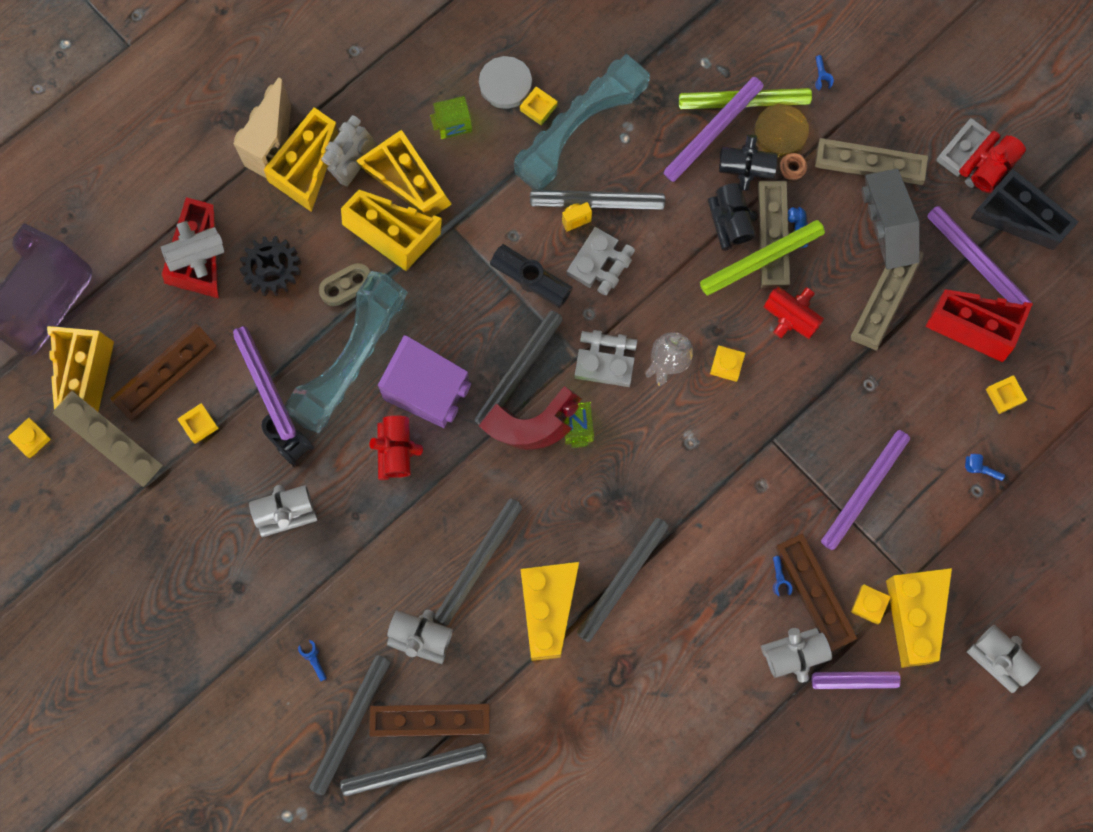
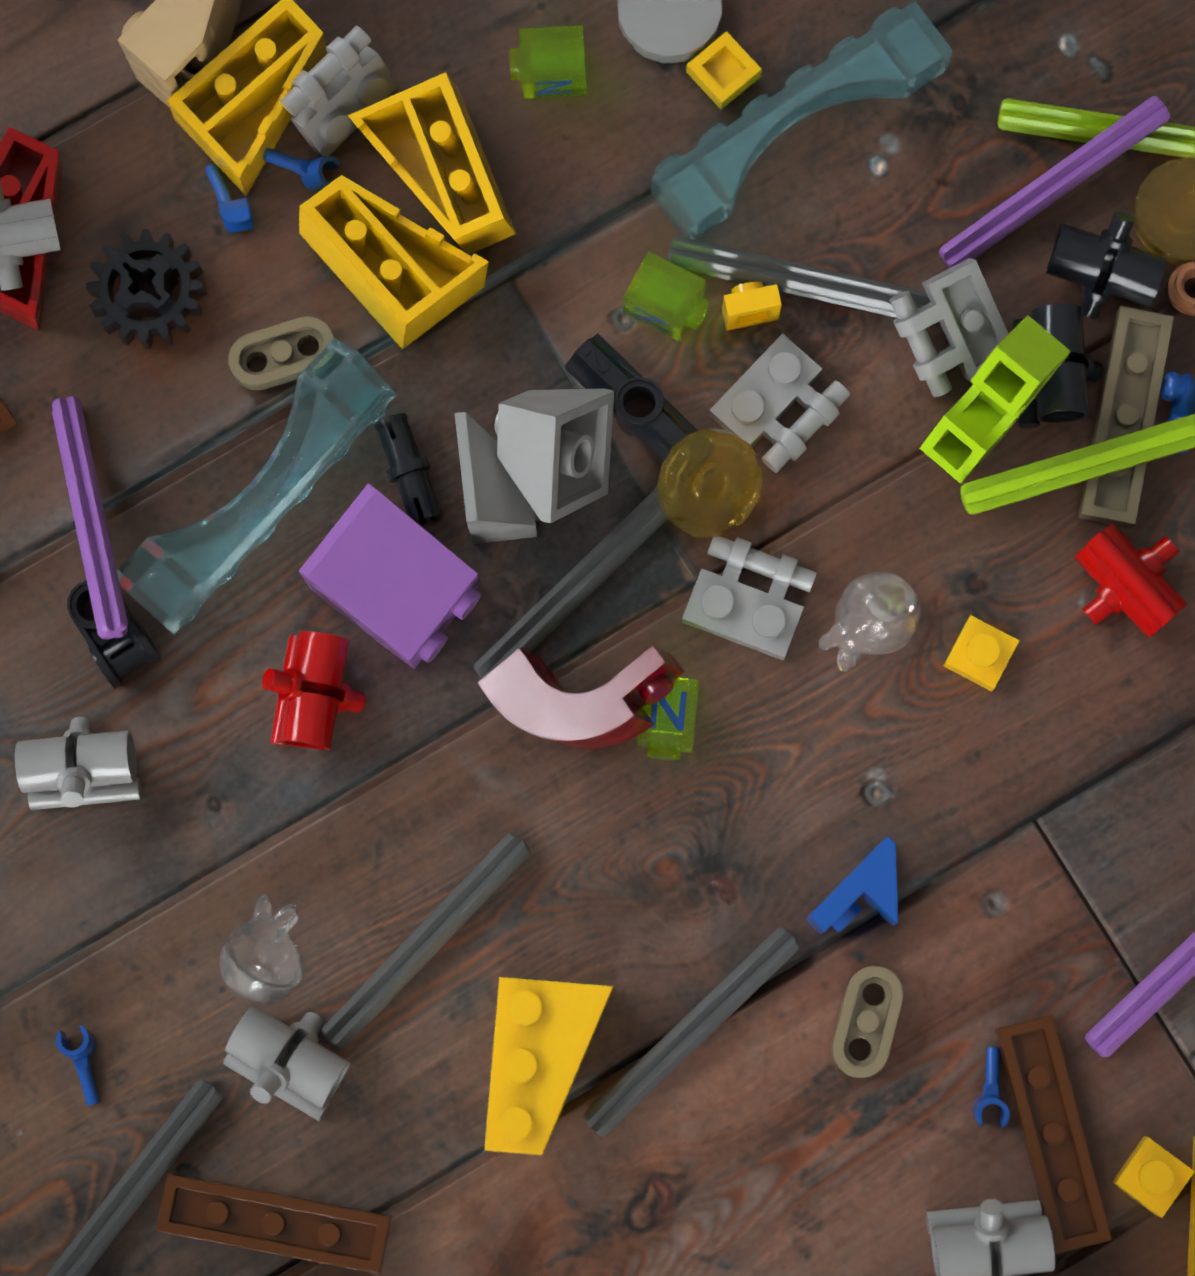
camera: 15 degrees right, 5 degrees up
(307, 221) = (235, 213): none -> blue hand
(341, 193) = (309, 170): none -> blue hand
(395, 586) = (261, 958): none -> clear piece
(420, 328) = (408, 468): none -> black pin
(467, 327) = (491, 498): none -> light grey slope
(494, 301) = (557, 447): none -> light grey slope
(533, 220) = (666, 297): none -> clear neon green brick
(574, 305) = (709, 482): none -> clear yellow tile
(686, 202) = (967, 317): none -> light grey plate
(698, 486) = (872, 880): none -> blue slope
(708, 236) = (996, 399): none -> lime arch
(710, 557) = (867, 1022): none -> dark tan plate

